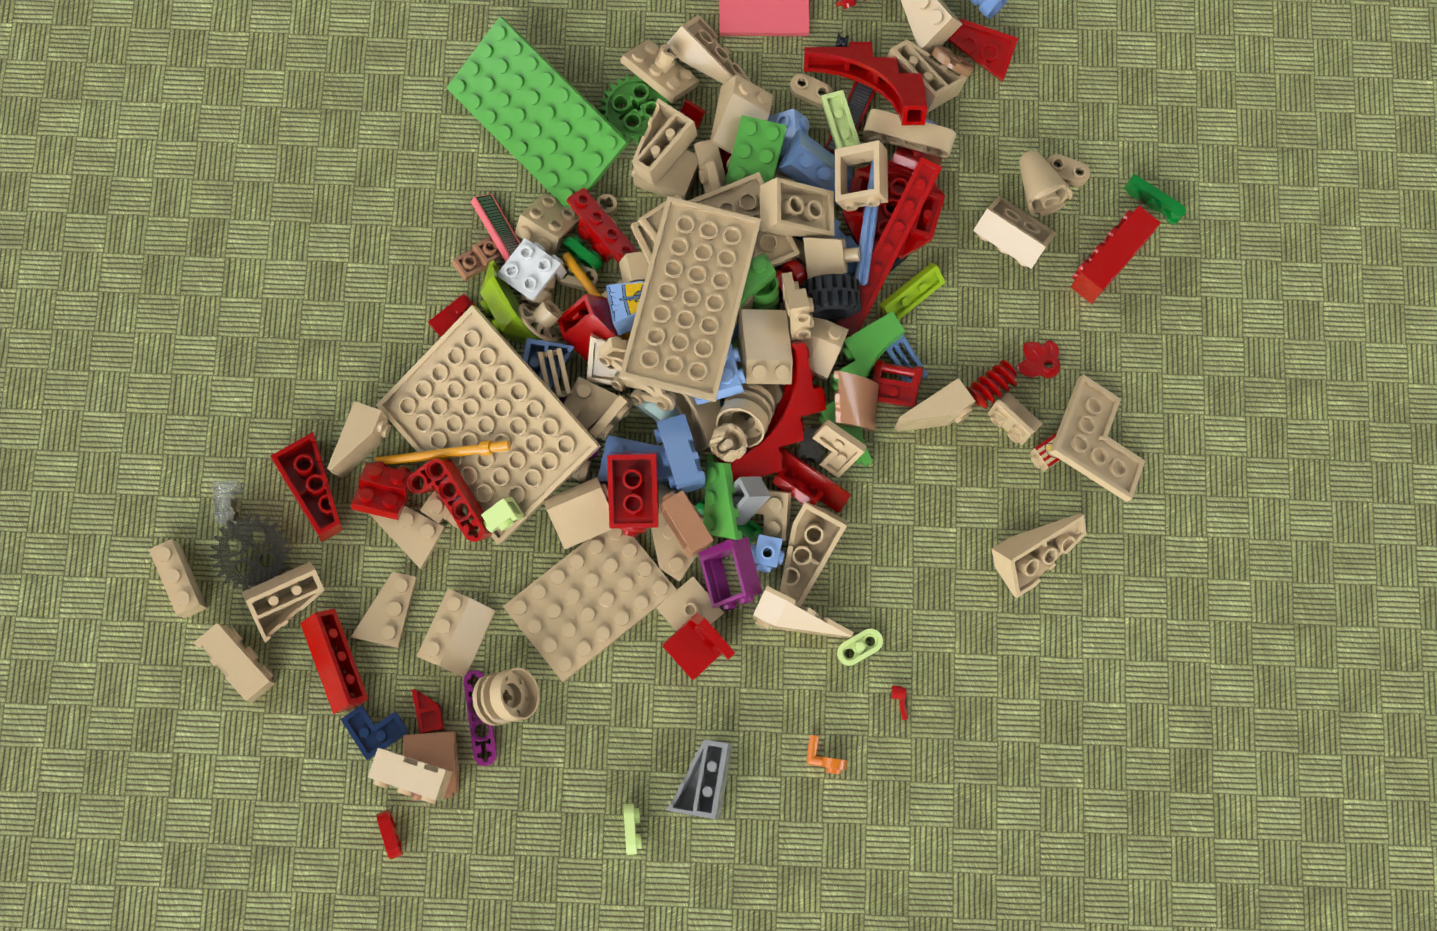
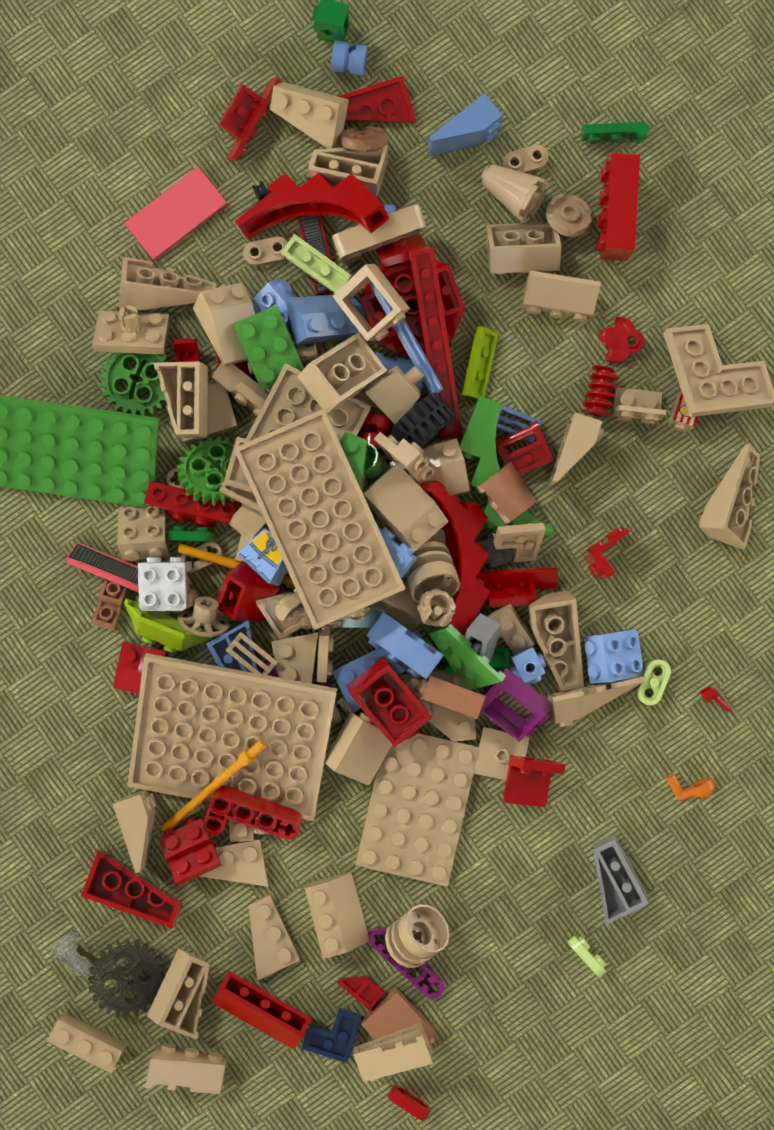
camera: 35 degrees left, 10 degrees up
(502, 515) = (301, 799): yellowish green brick -> none
(627, 207) = (200, 481): none -> bright green gear
(843, 600) = (613, 656): none -> light blue bracket
(896, 502) = (597, 562): none -> red bracket
(1016, 286) = (560, 296): none -> tan slope
(1038, 110) = (468, 129): none -> medium blue slope
(1070, 233) = (568, 215): none -> tan tile

